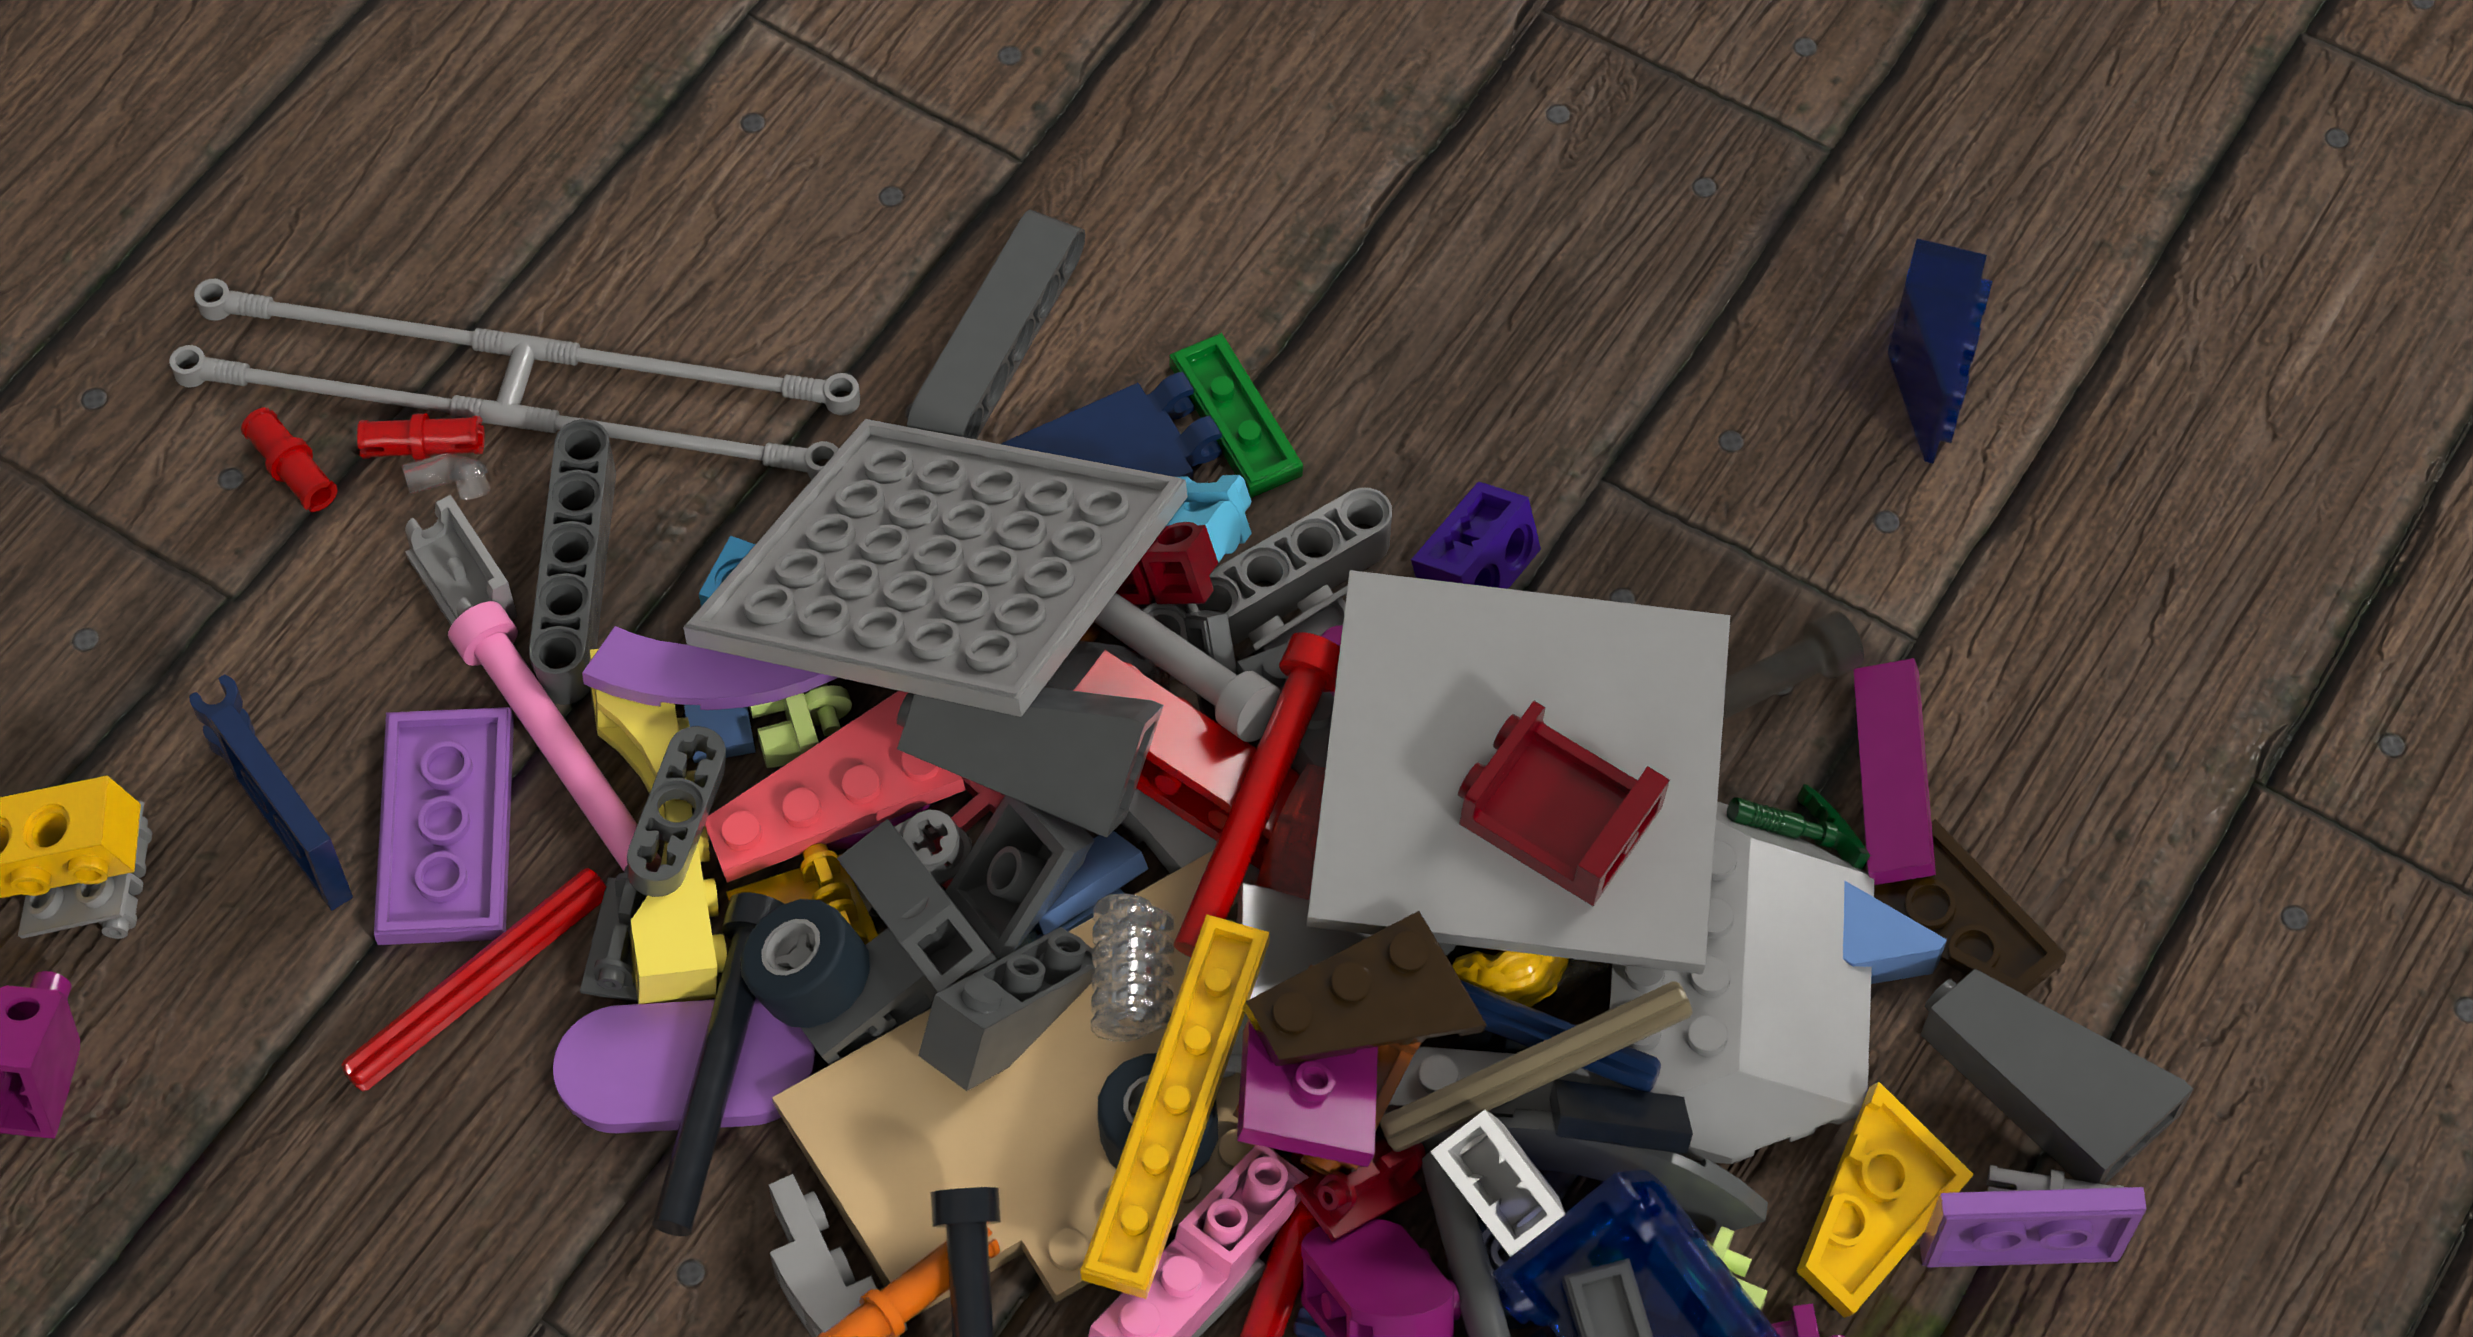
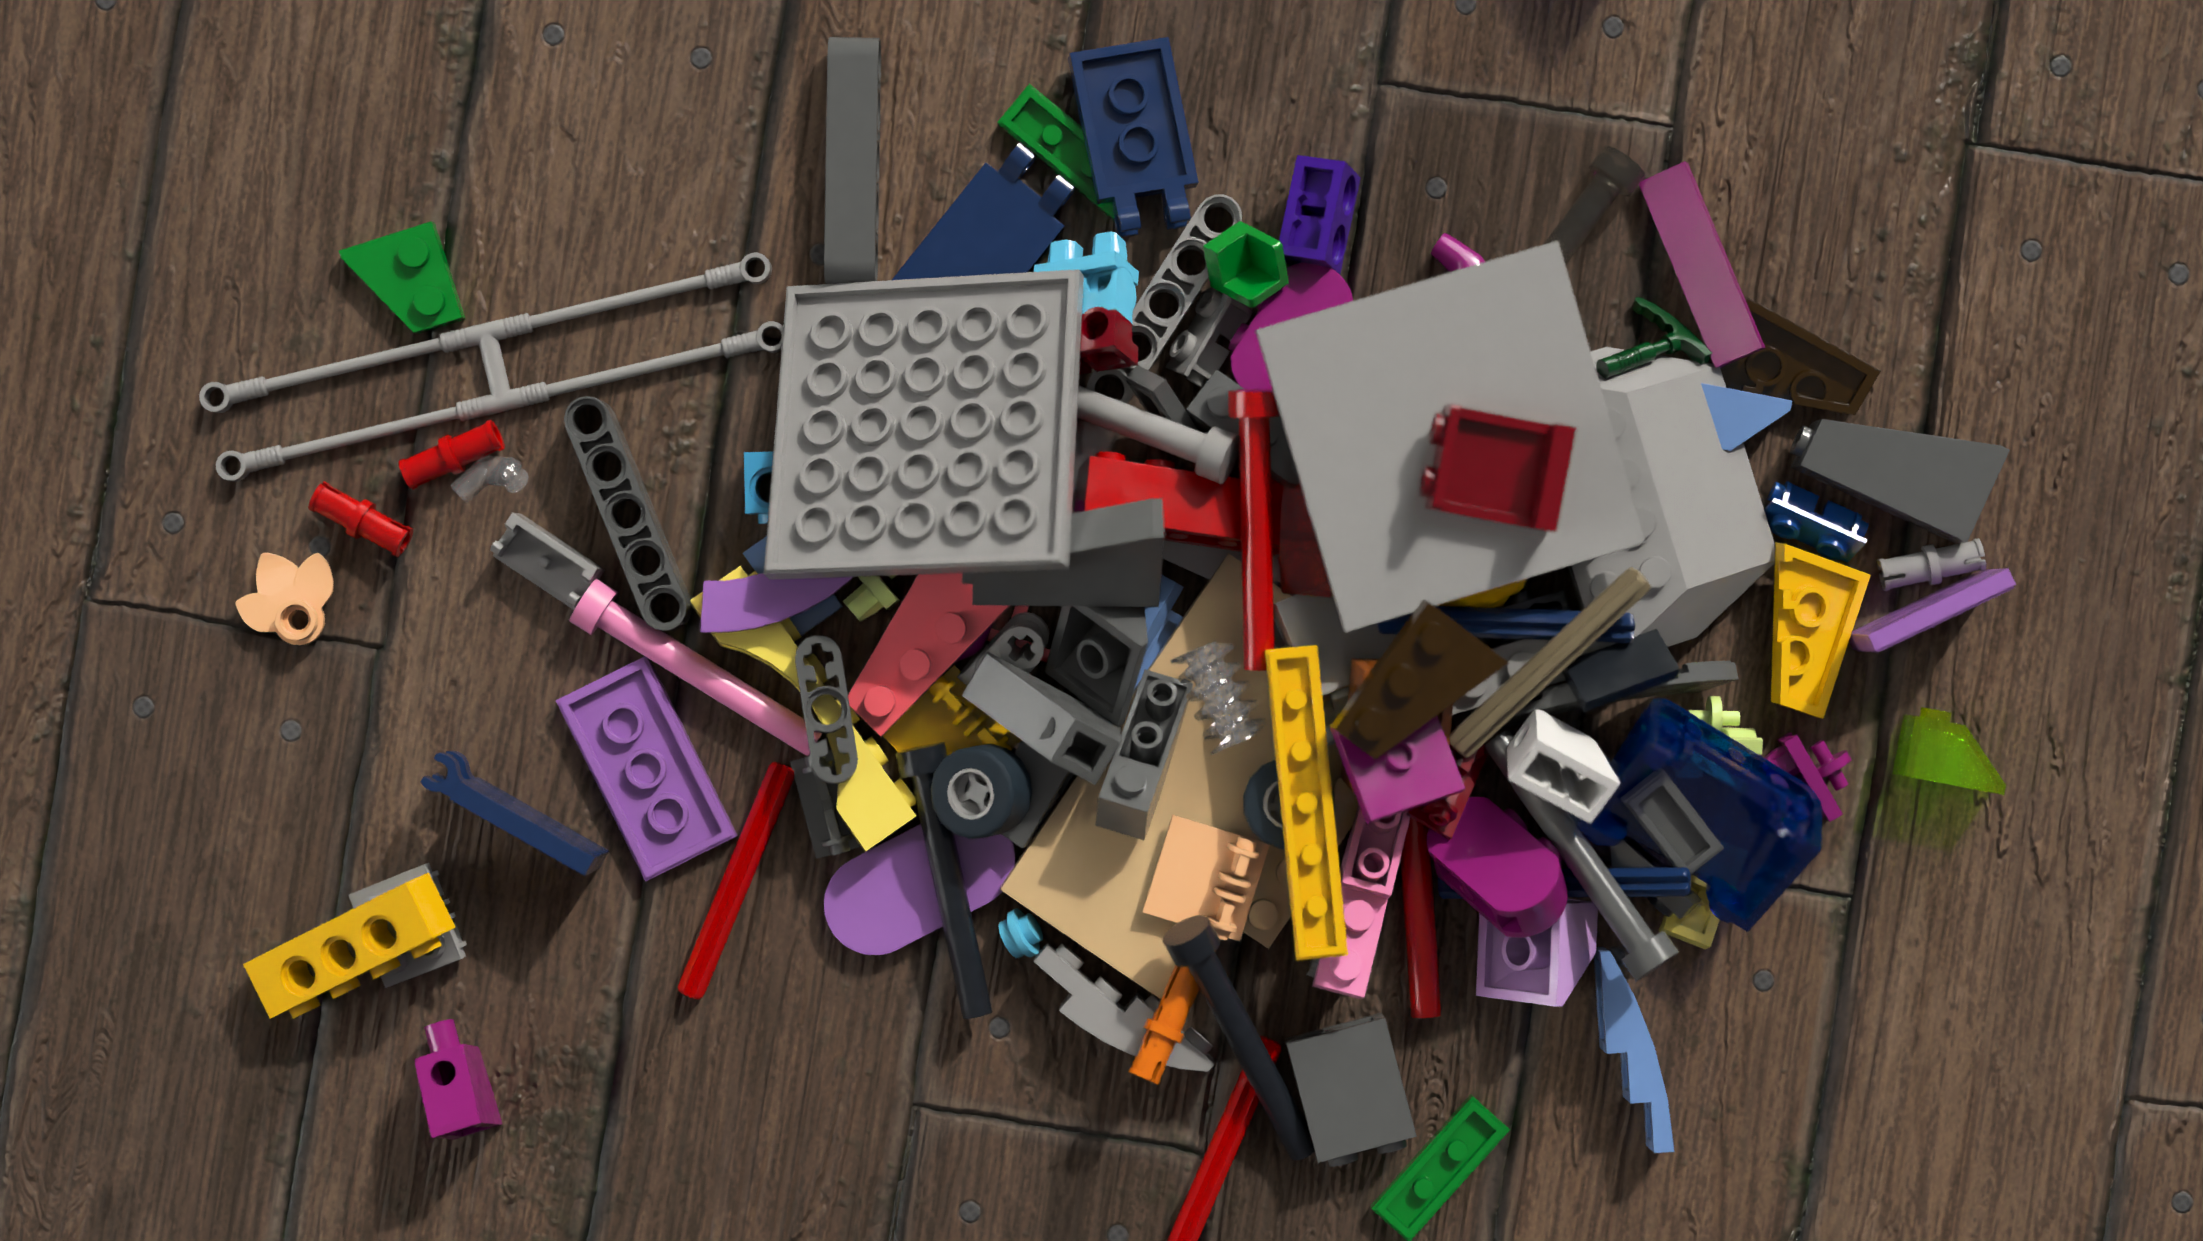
camera: 25 degrees left, 30 degrees up
(163, 502) = (283, 592): none -> light nougat plate
(479, 268) = (409, 276): none -> green wing
(769, 1161) = (1020, 934): none -> medium azure plate
(1032, 1160) = (1207, 875): none -> light nougat hinge
(1313, 410) = (1134, 129): none -> dark blue tile
(1371, 548) = (1246, 264): none -> green panel
(1913, 1081) = (1834, 533): none -> blue hinge

